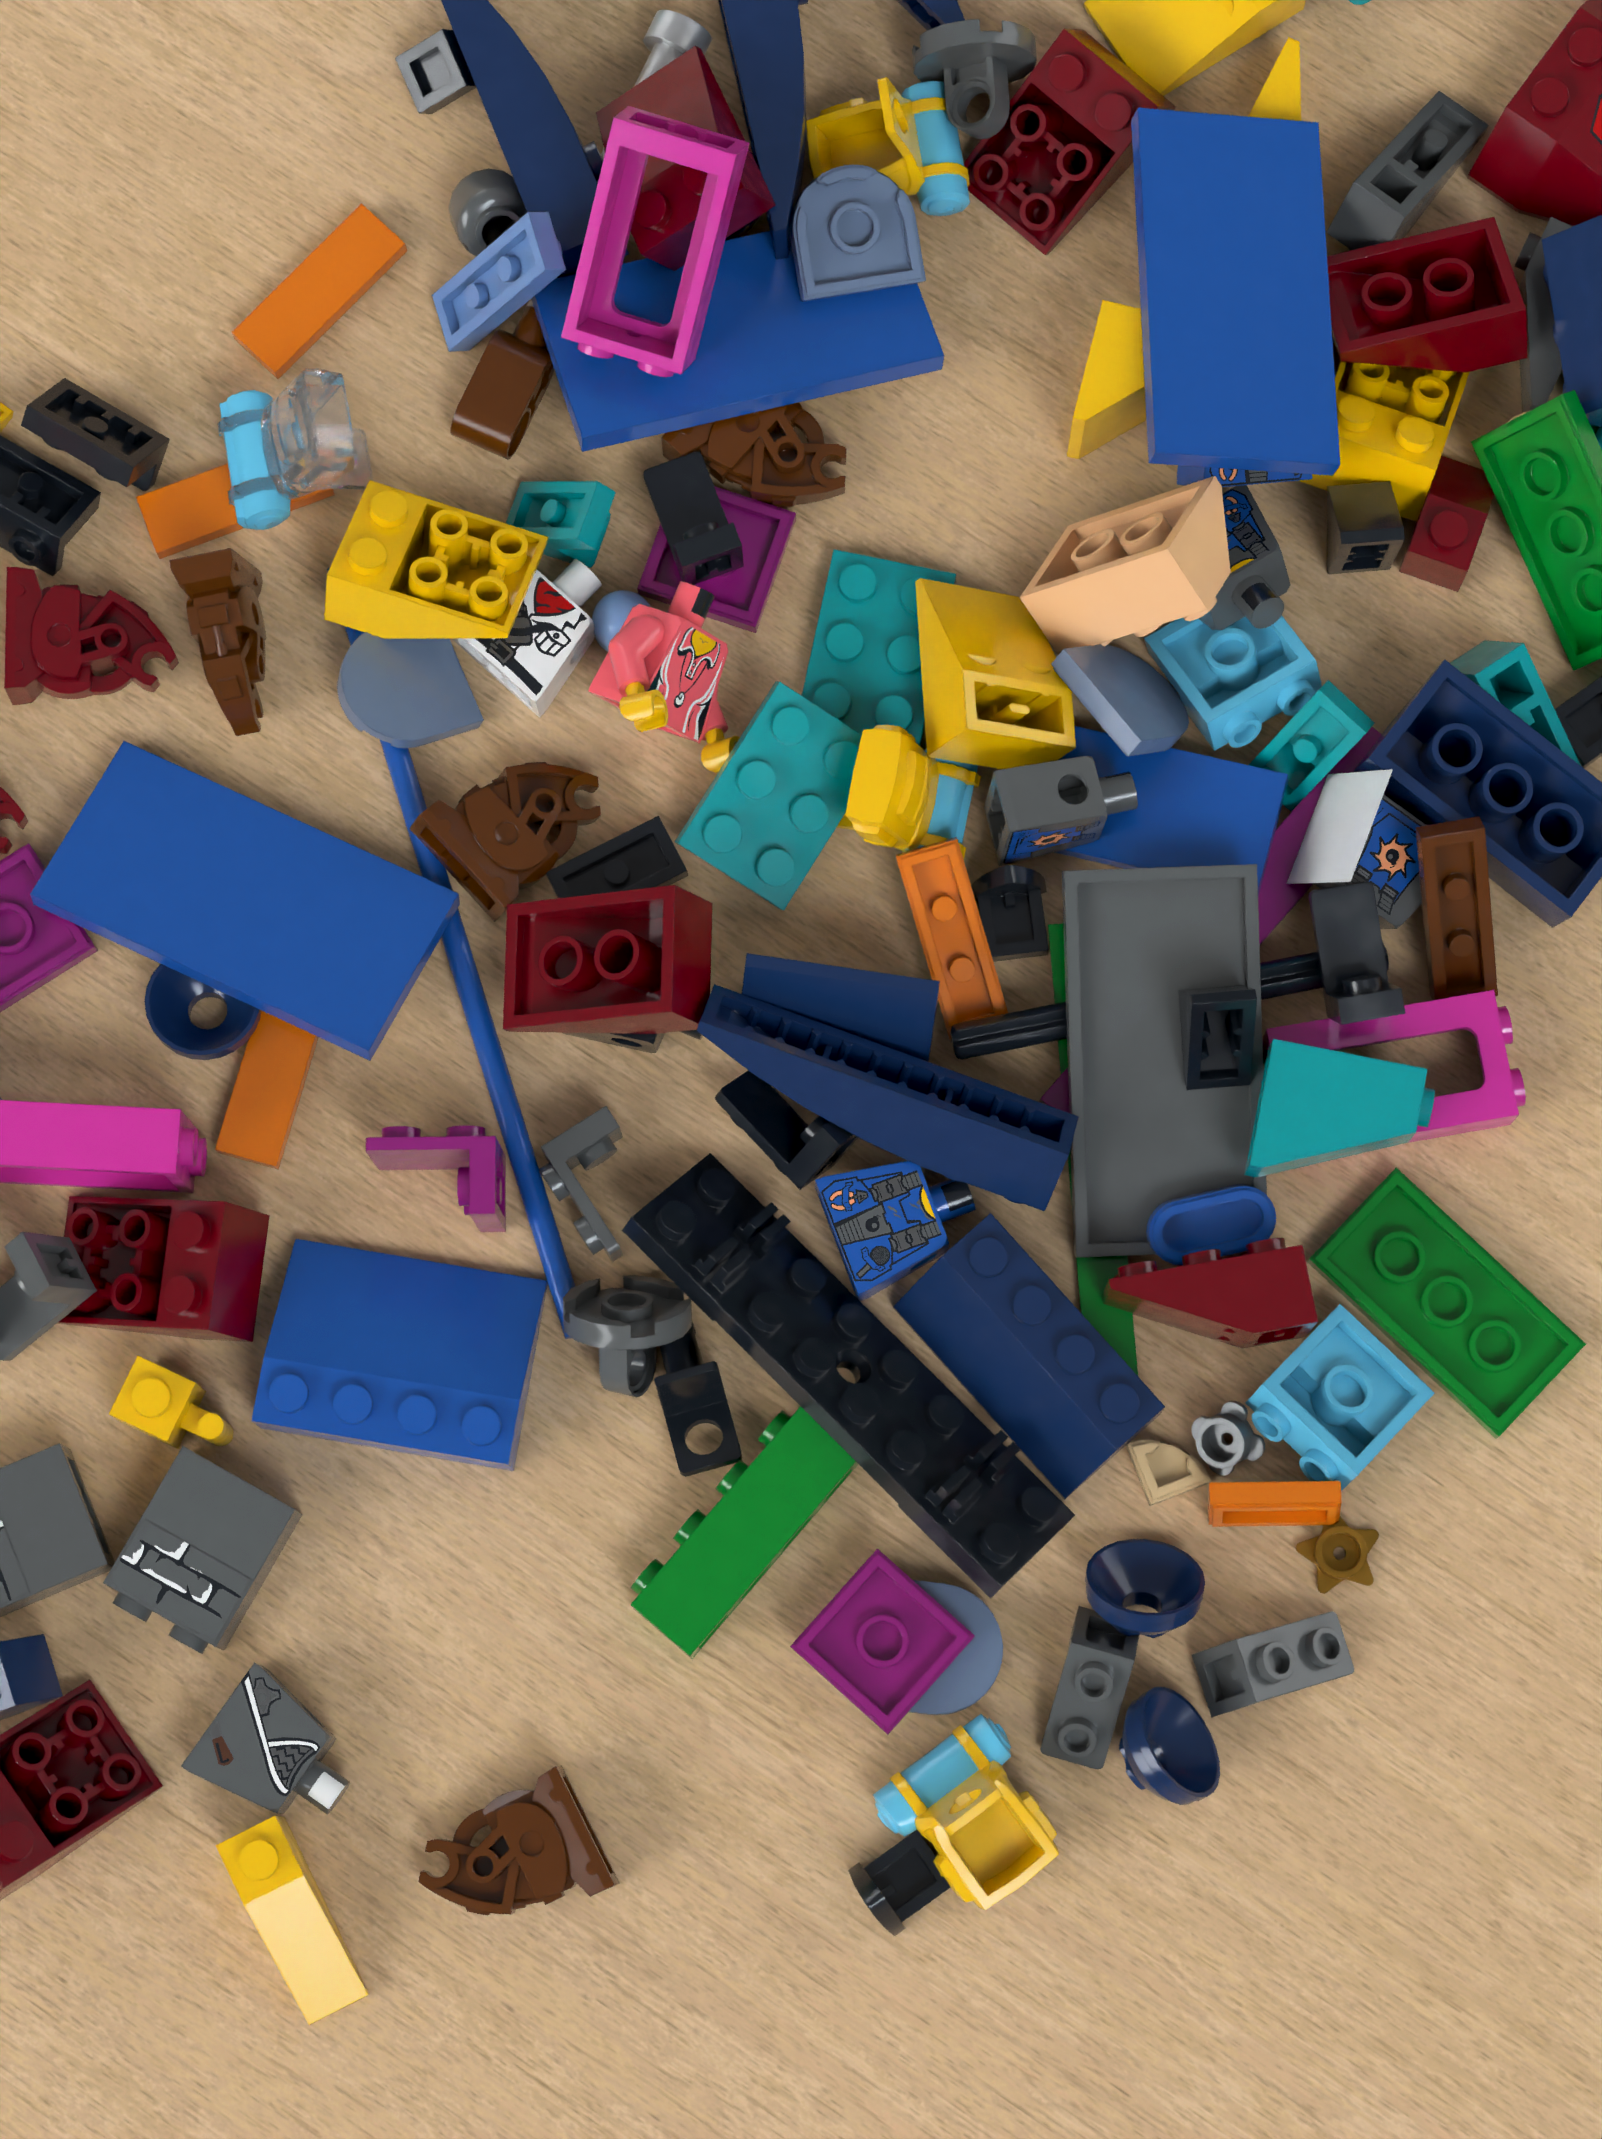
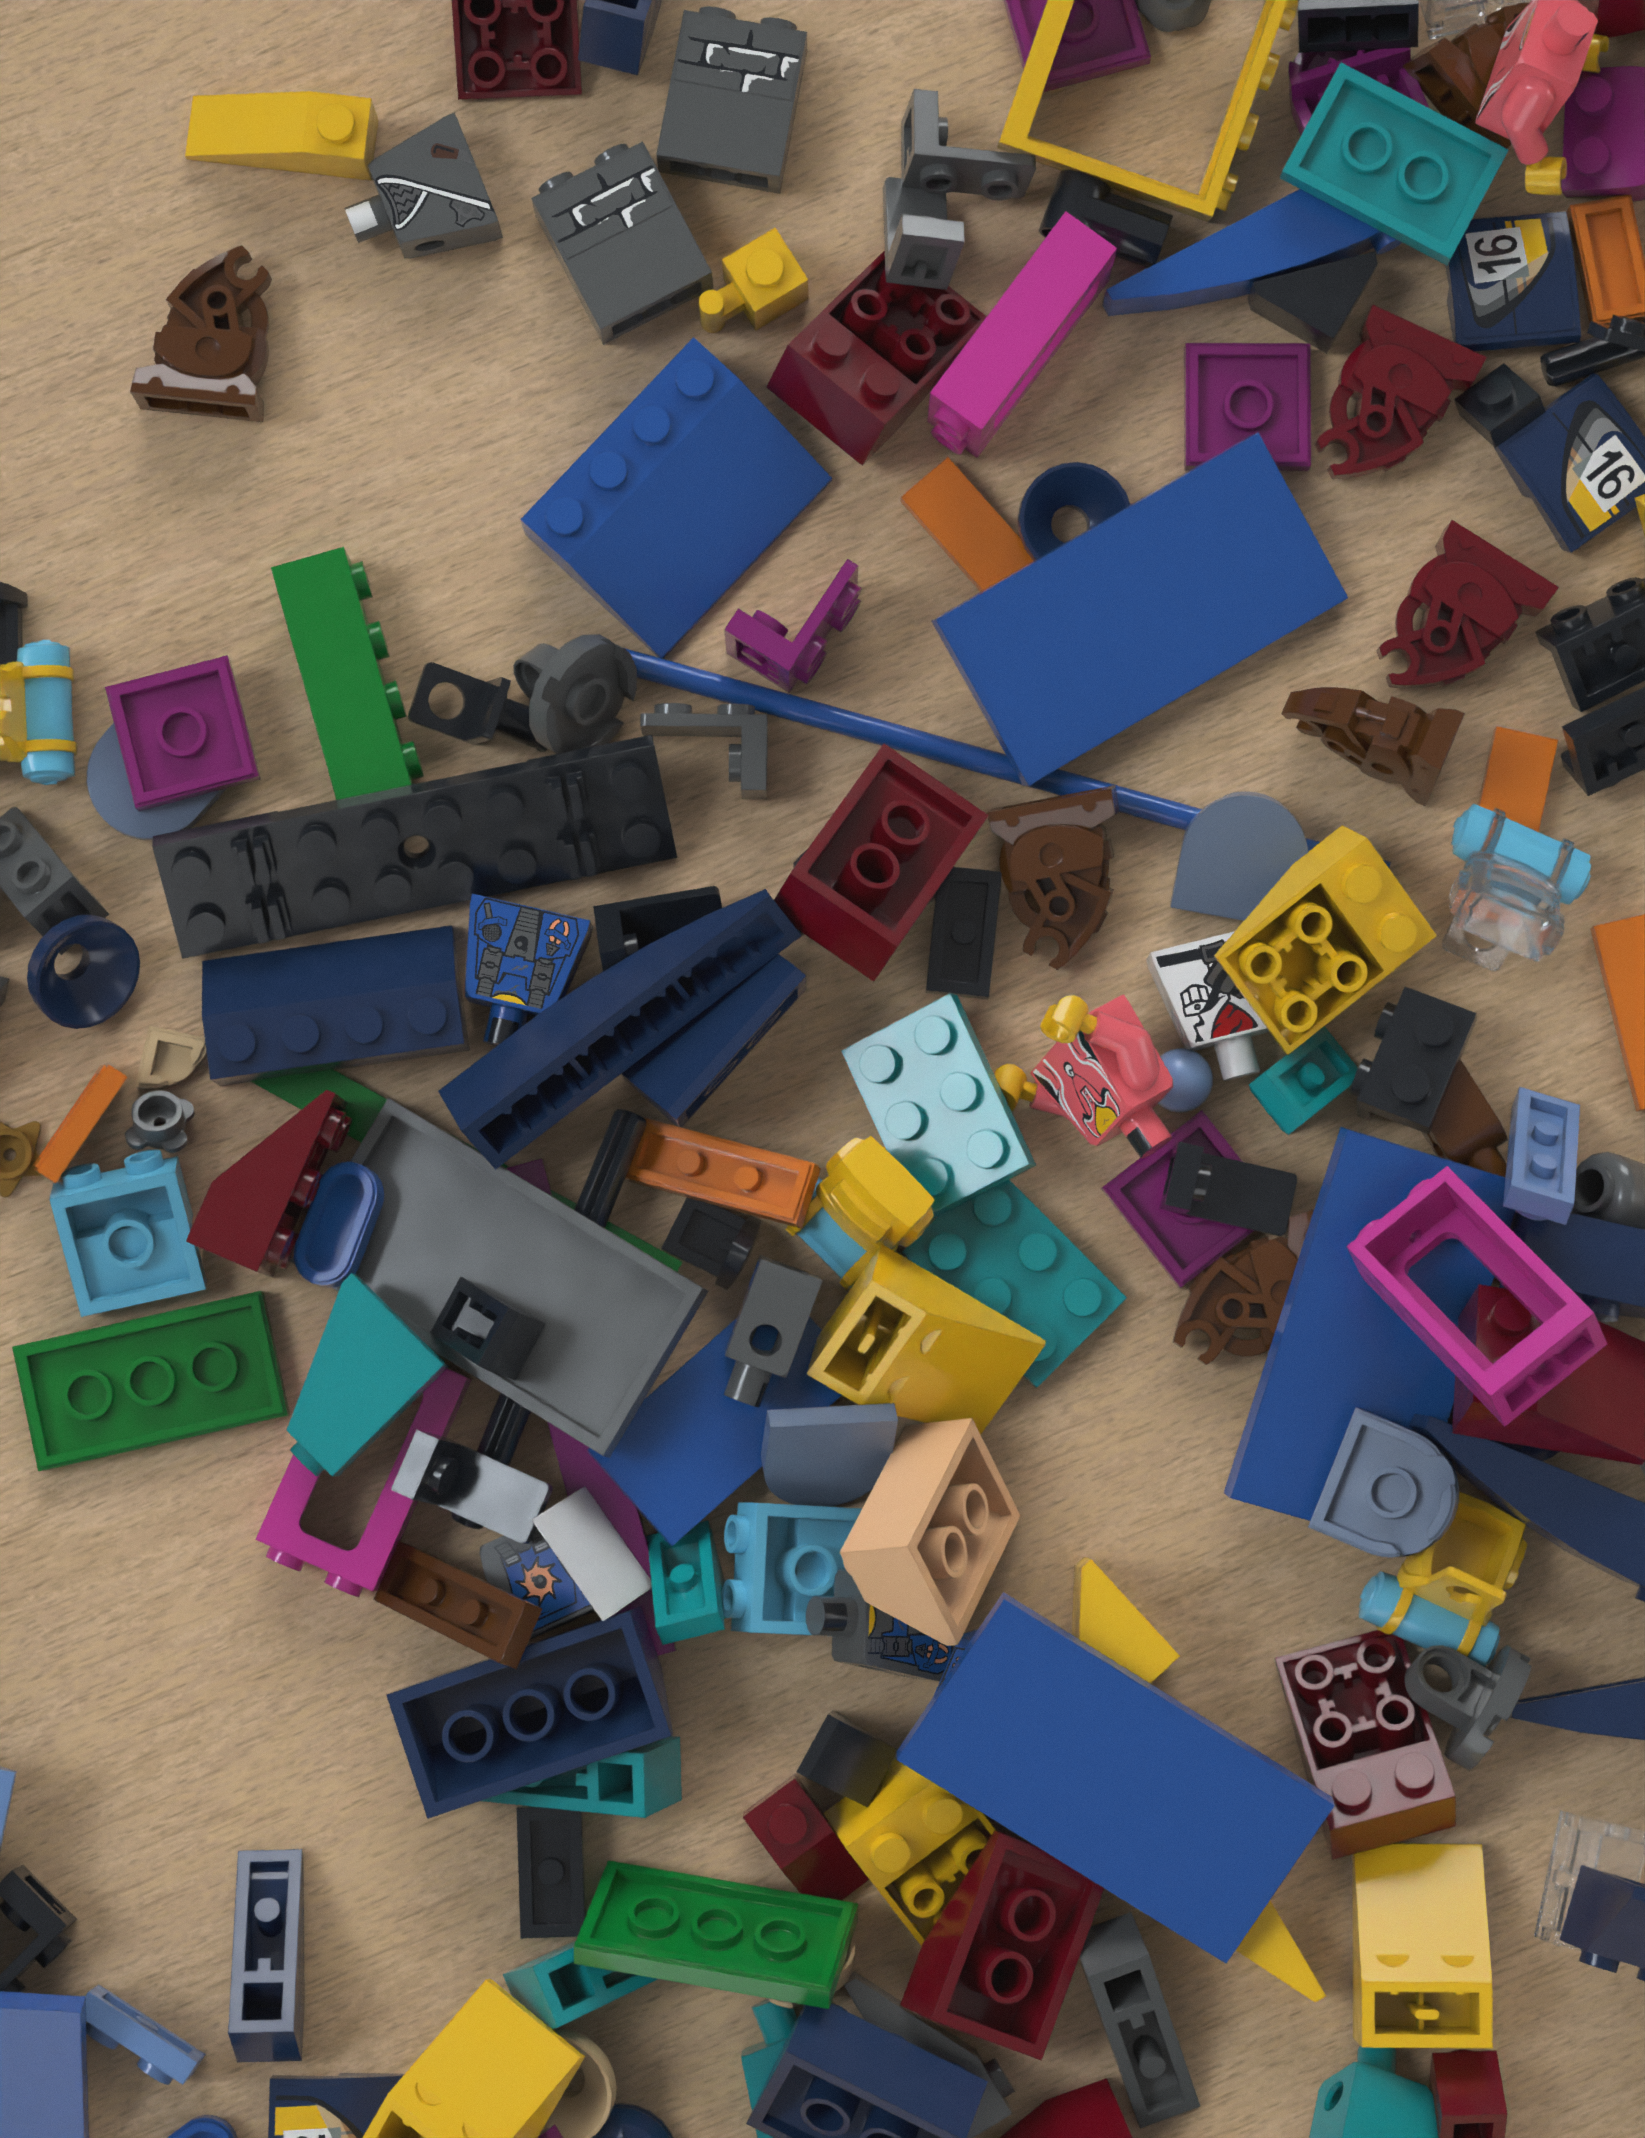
camera: 120 degrees right, 5 degrees up
(485, 438) = (1414, 1061): none -> black bracket

